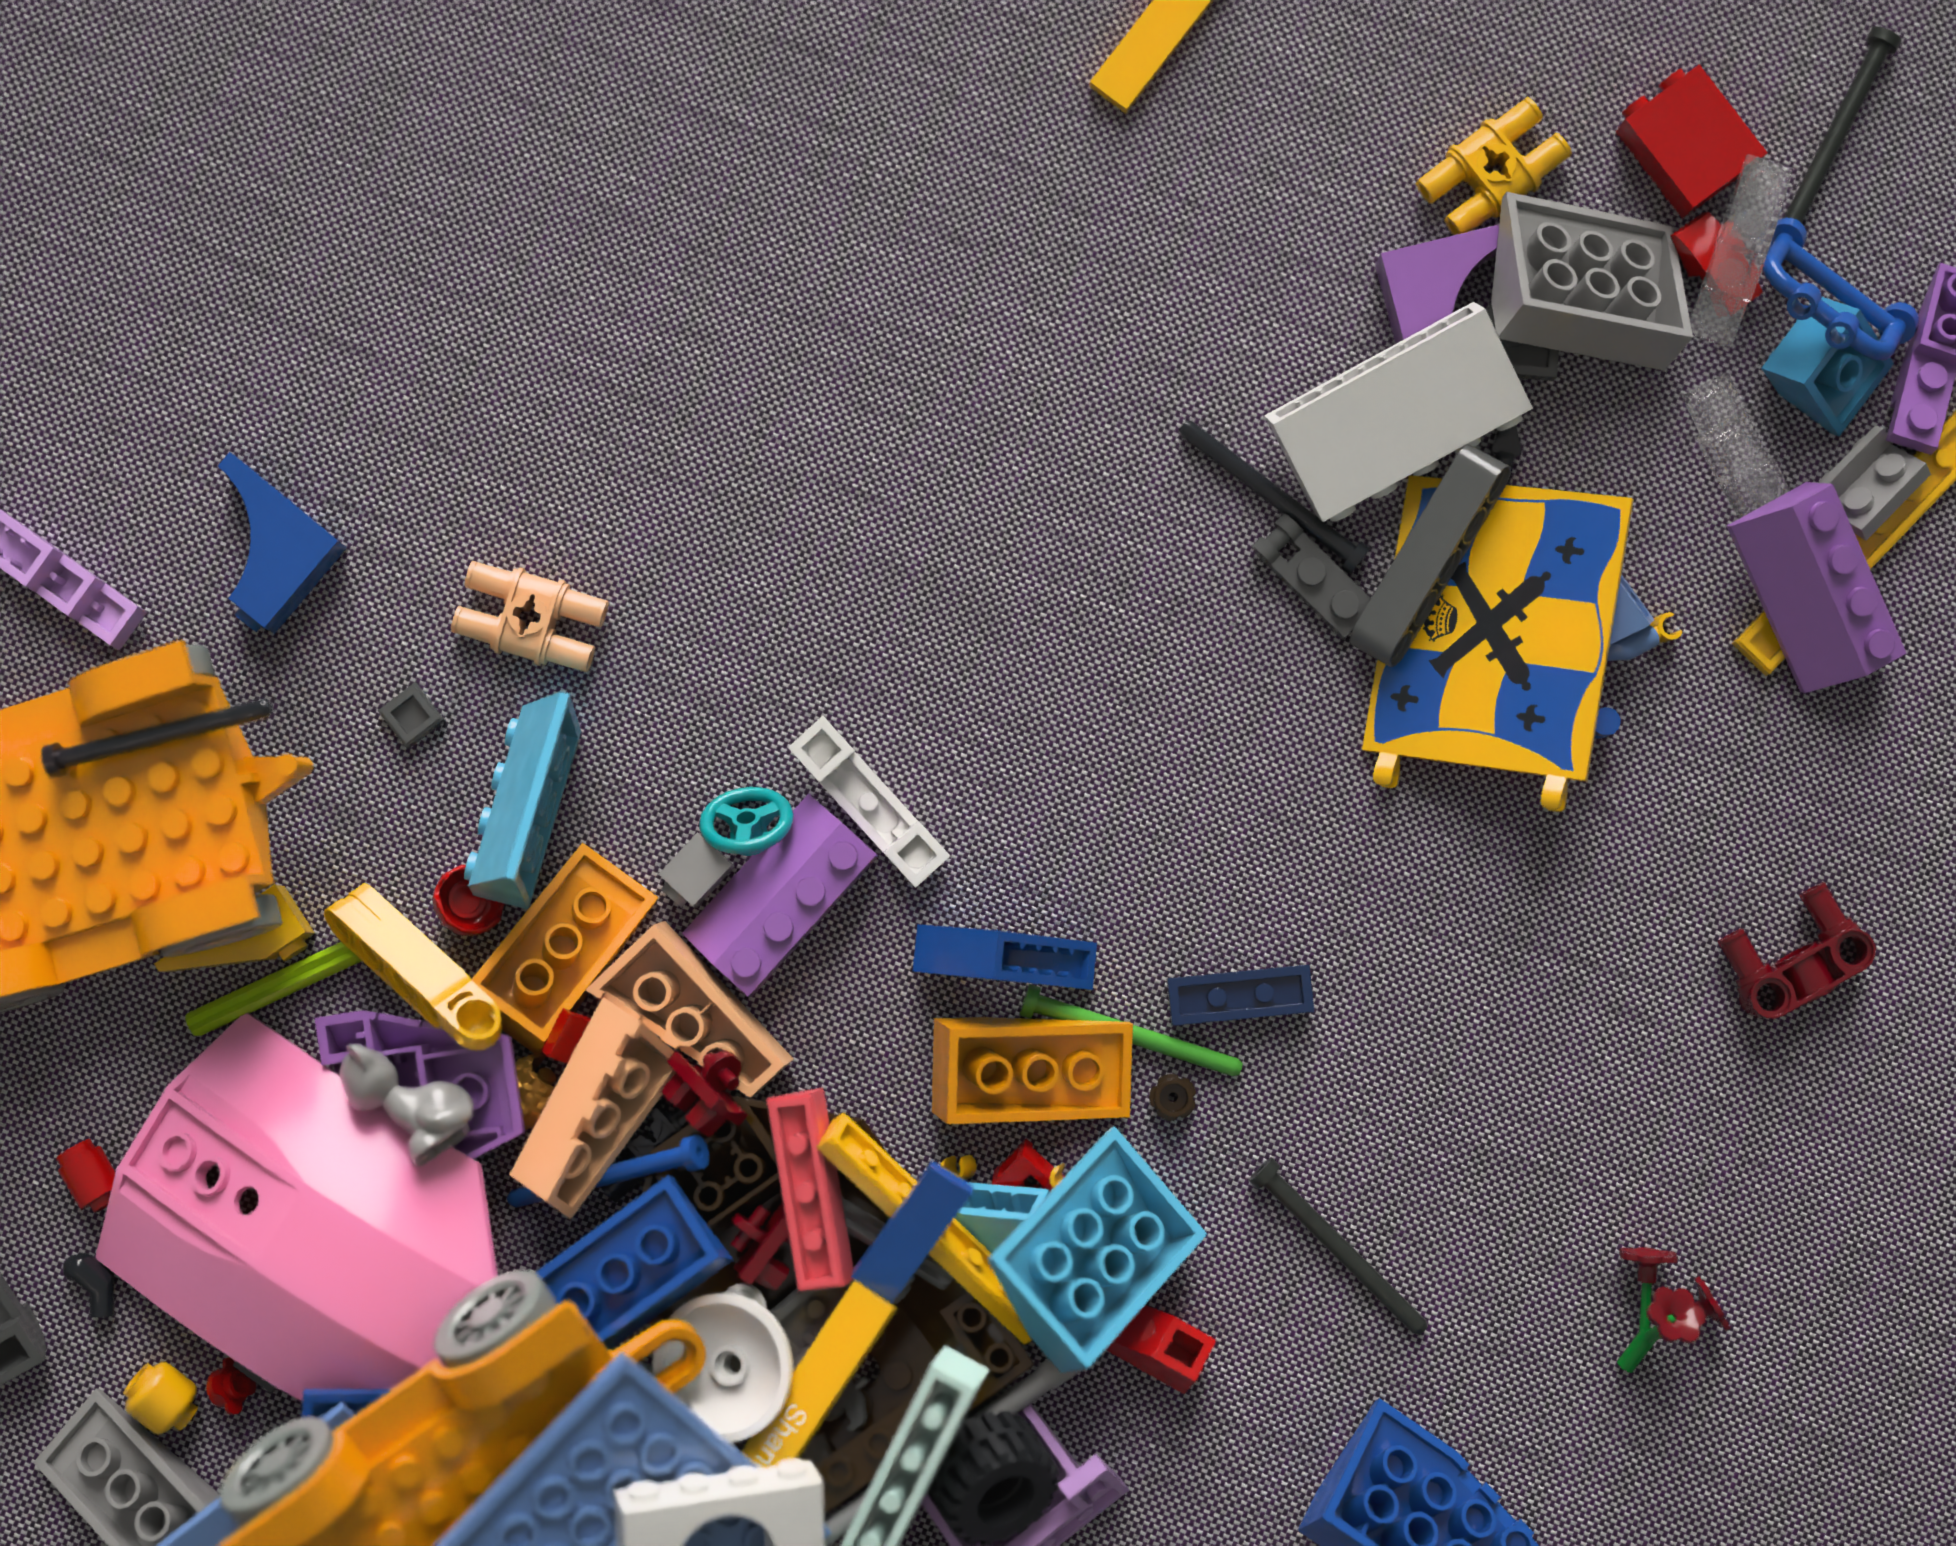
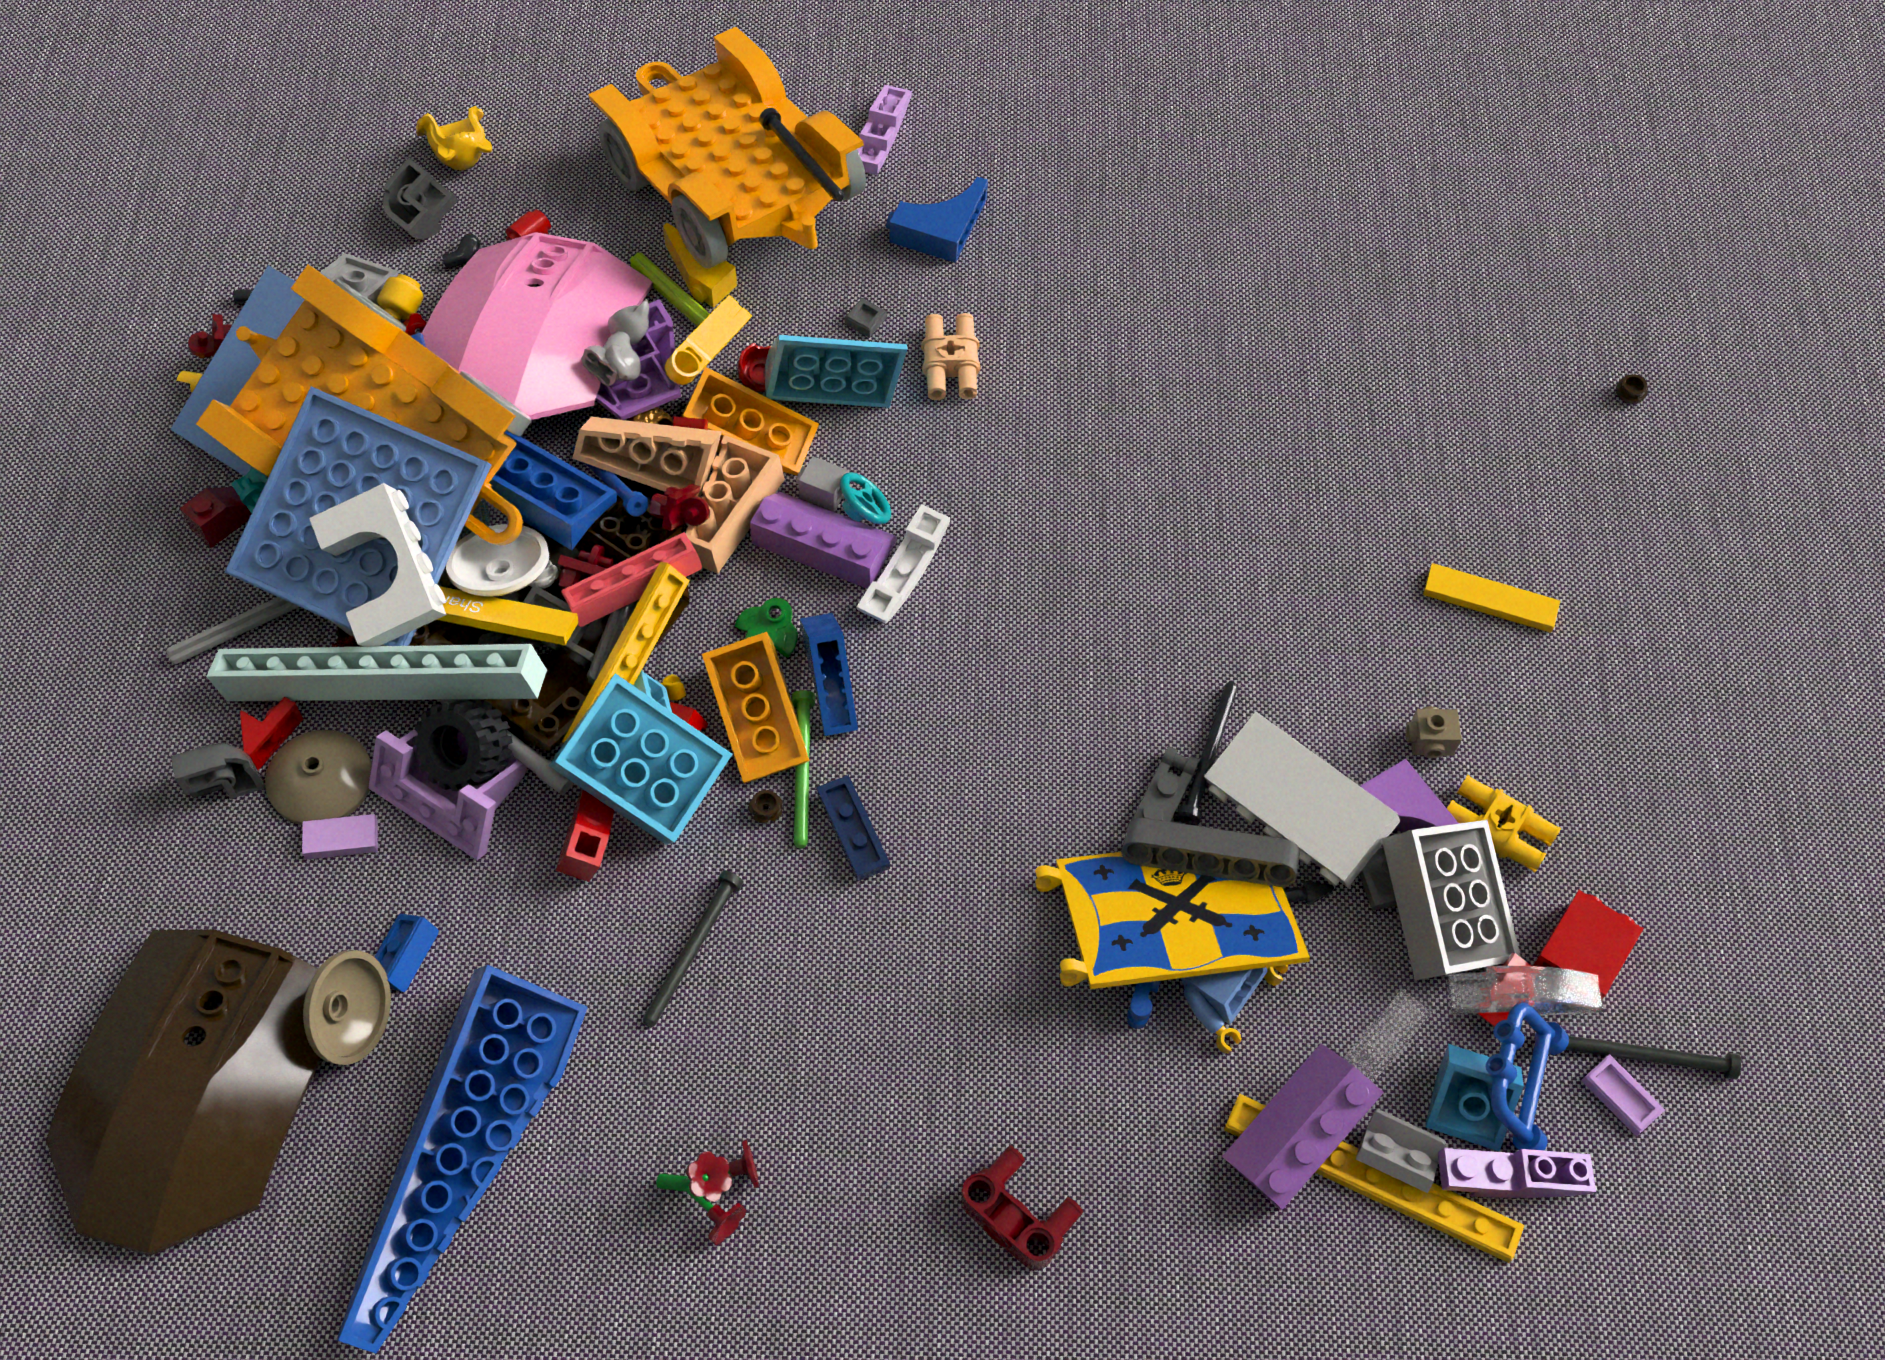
camera: 70 degrees right, 25 degrees down
(909, 1020) = (780, 629): none -> green plate
(912, 1231) = (620, 633): blue tile -> none
(1348, 197) = (1434, 732): none -> dark tan brick
(1874, 186) = (1623, 1095): none -> lavender tile

